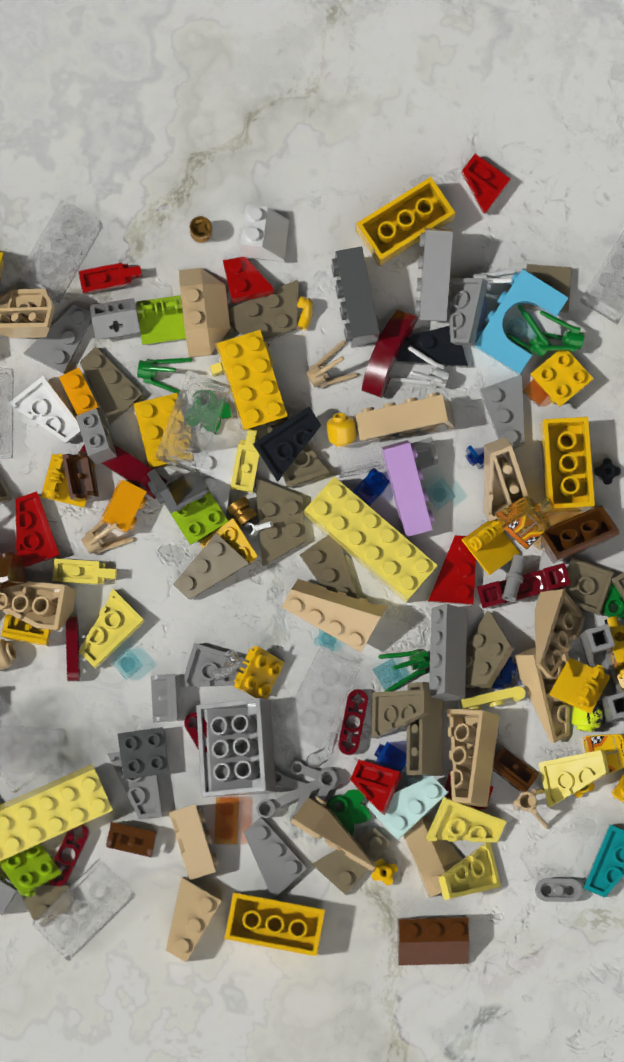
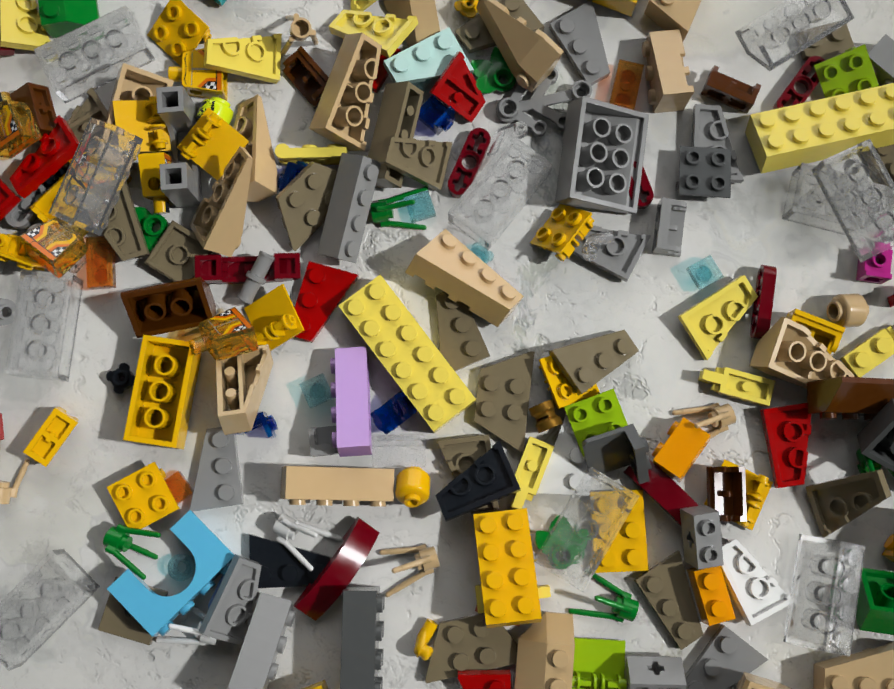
camera: 160 degrees left, 0 degrees up
(257, 527) = (532, 394): white hand -> none
(538, 340) = (160, 546): green plant -> none

